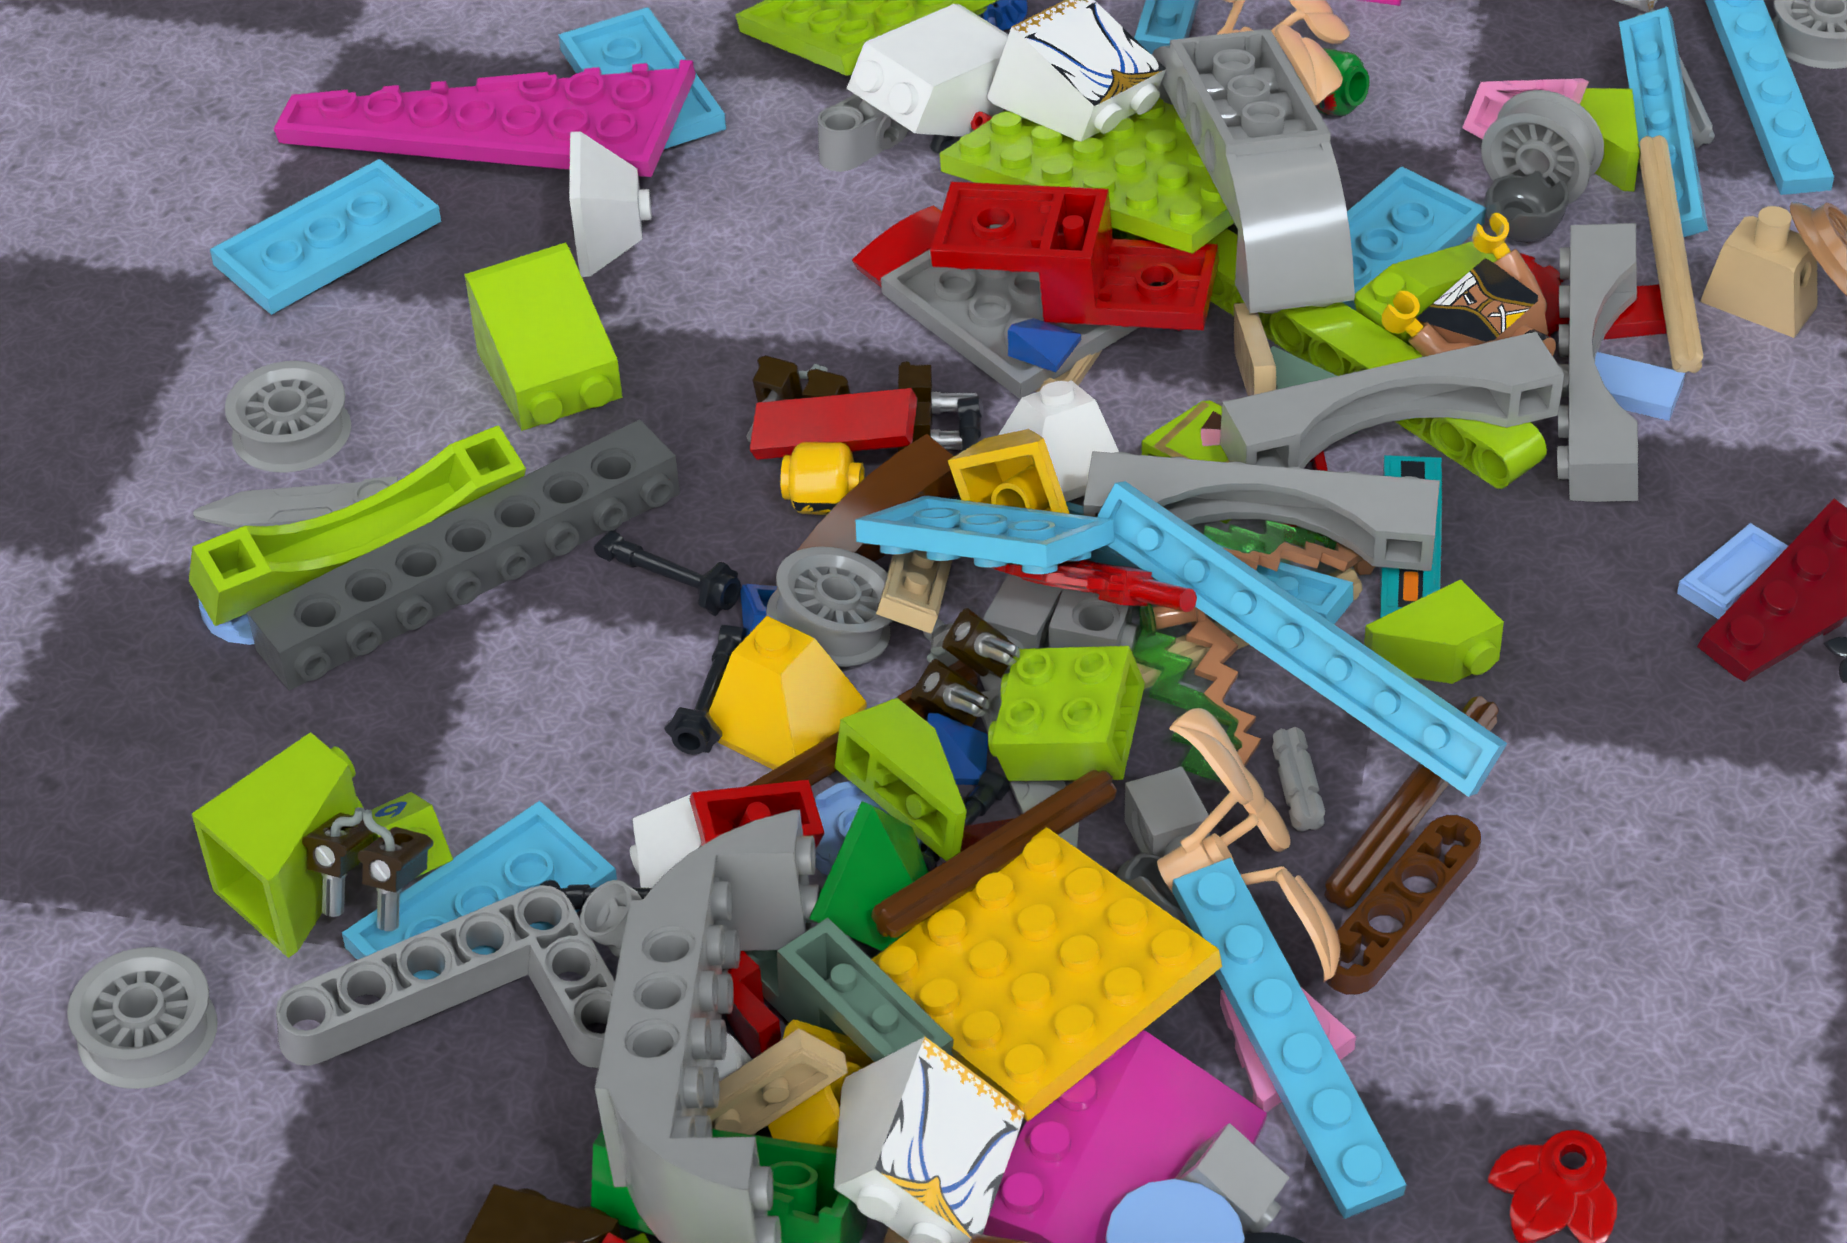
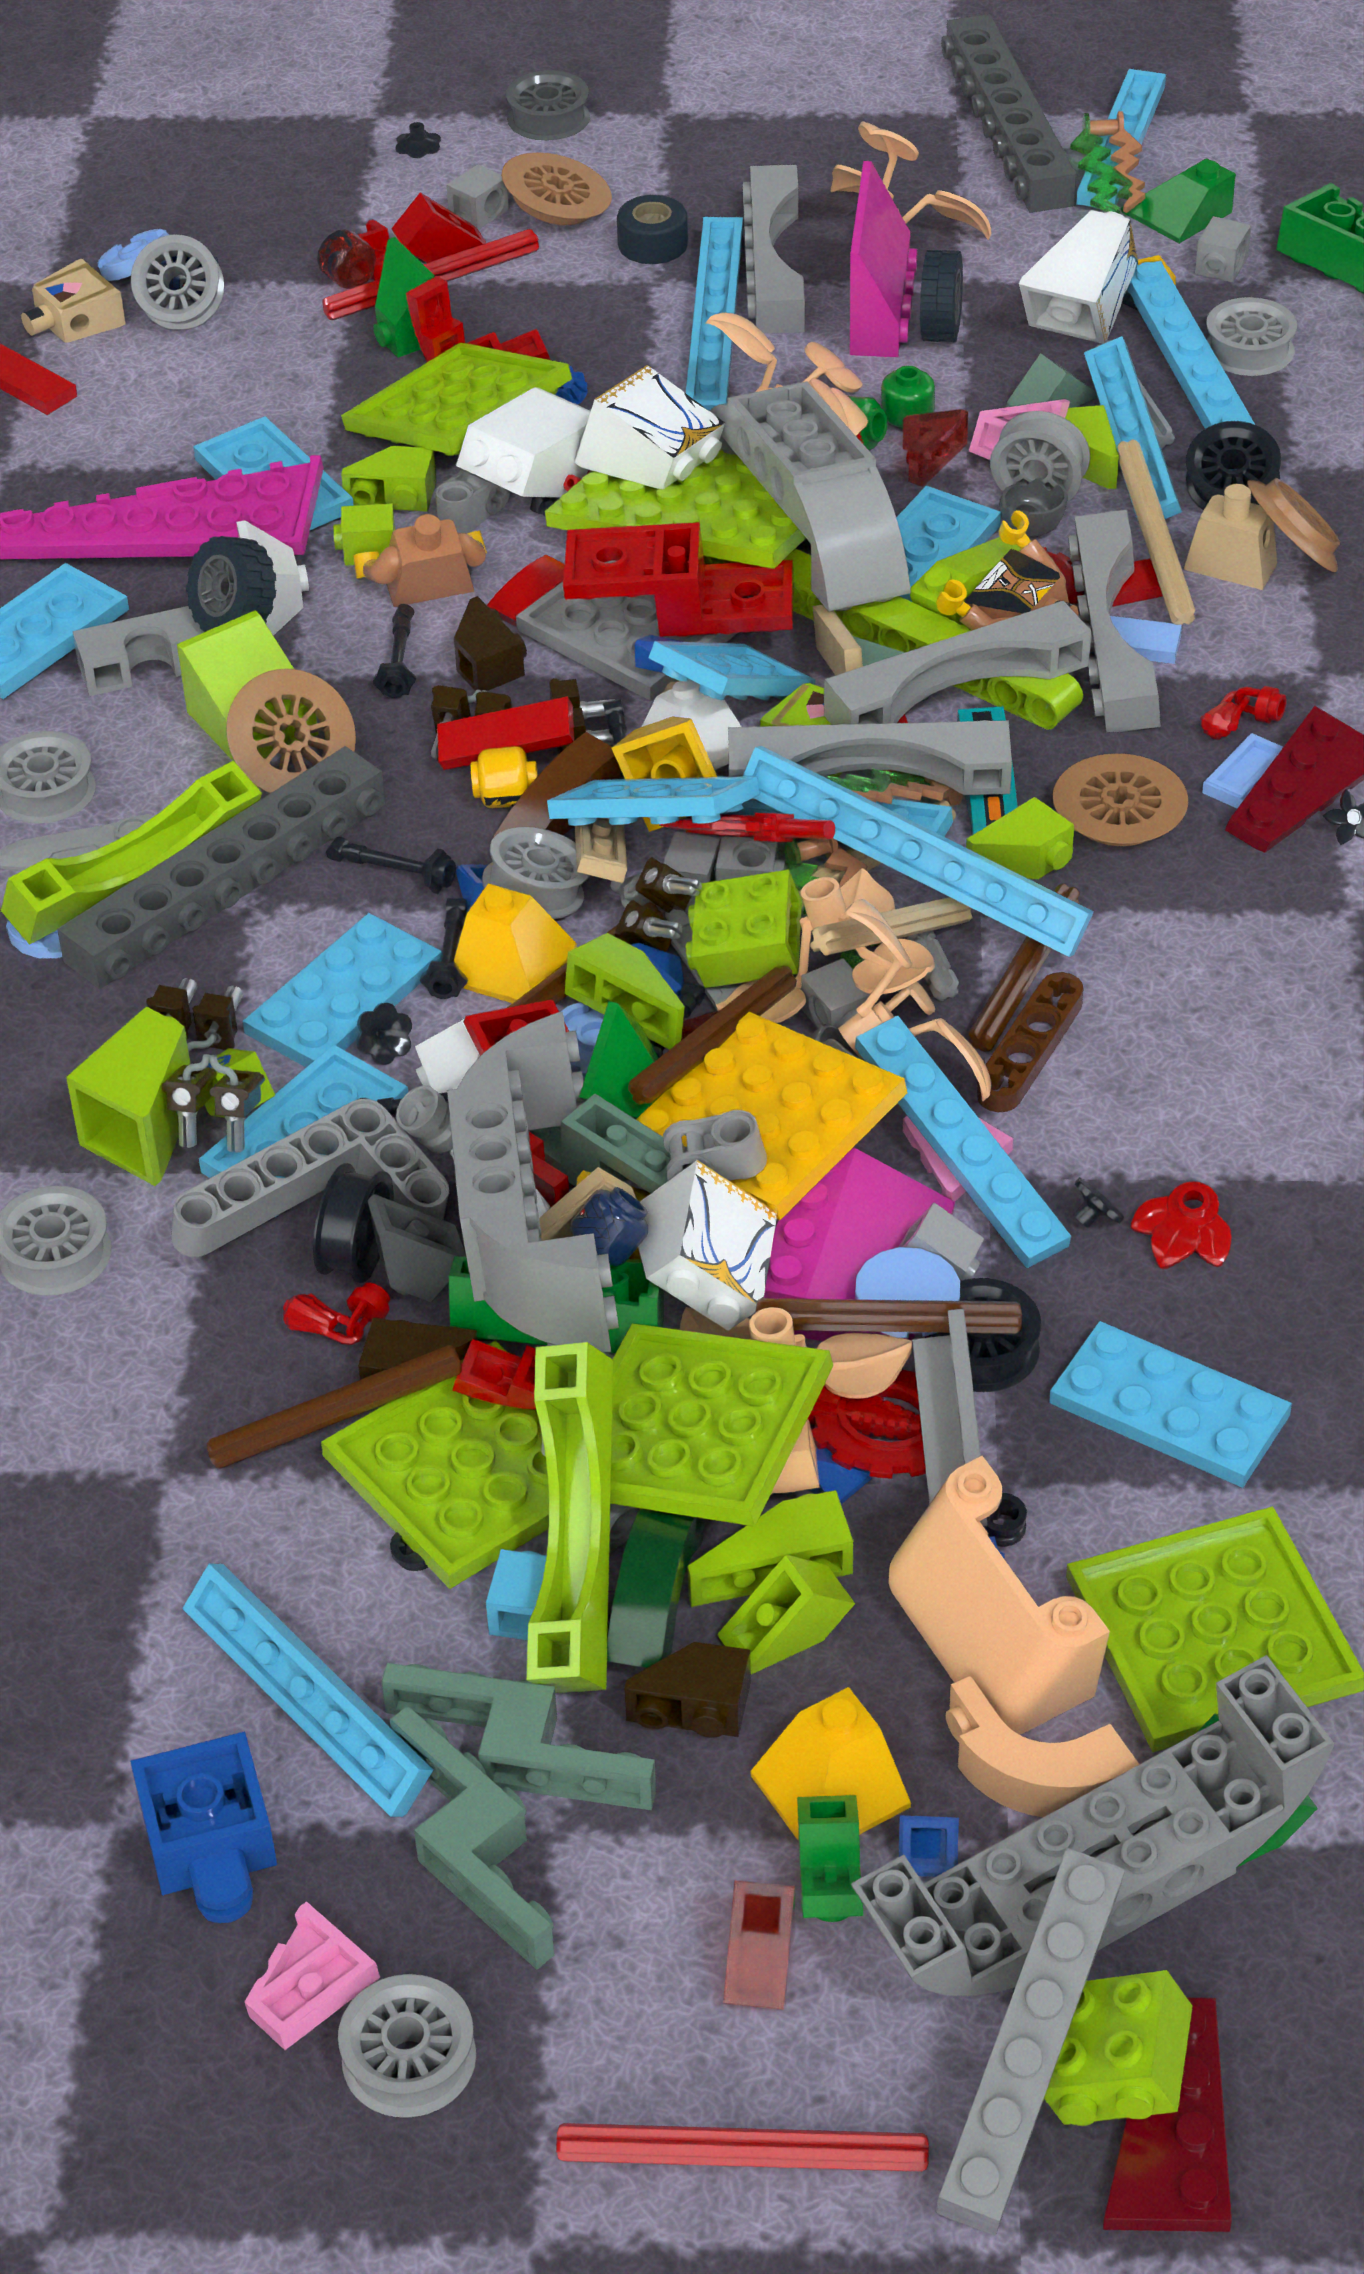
camera: 10 degrees left, 0 degrees up
(405, 747) = (212, 1017): none -> dark brown piece
(406, 269) = (112, 649): none -> light grey arch
(429, 1163) = (312, 1315): none -> red piece
(499, 1049) = (344, 1225): none -> black wheel
(545, 204) = (229, 581): none -> black wheel
(556, 1092) = (414, 1248): none -> dark grey slope
(564, 339) = (298, 688): none -> medium nougat piece
(570, 730) = (352, 976): none -> medium azure plate
(617, 796) = (392, 1033): none -> black plant
(723, 338) = (395, 678): none -> black piece
(731, 159) = (363, 529): none -> lime brick
(776, 96) = (393, 476): none -> lime slope
(789, 199) = (424, 561): none -> nougat torso
(803, 1108) = (615, 1221): none -> dark blue head
(837, 313) = (487, 649): none -> dark brown slope
(961, 1015) = (722, 1142): none -> light grey piece
(1113, 374) = (727, 669): none -> medium azure plate
(1163, 697) = (826, 905): none -> light nougat plant
(1246, 733) = (903, 921): none -> tan axle
(1399, 56) = (907, 393): none -> green head
(1420, 113) = (933, 442): none -> clear red slope
(1446, 1143) = (1094, 1205): none -> black plant
(1573, 55) = (1050, 382): none -> sand green slope
(1609, 587) = (1149, 791): none -> medium nougat piece
(1721, 497) = (1225, 717): none -> red piece
(1771, 156) = (1228, 447): none -> black wheel

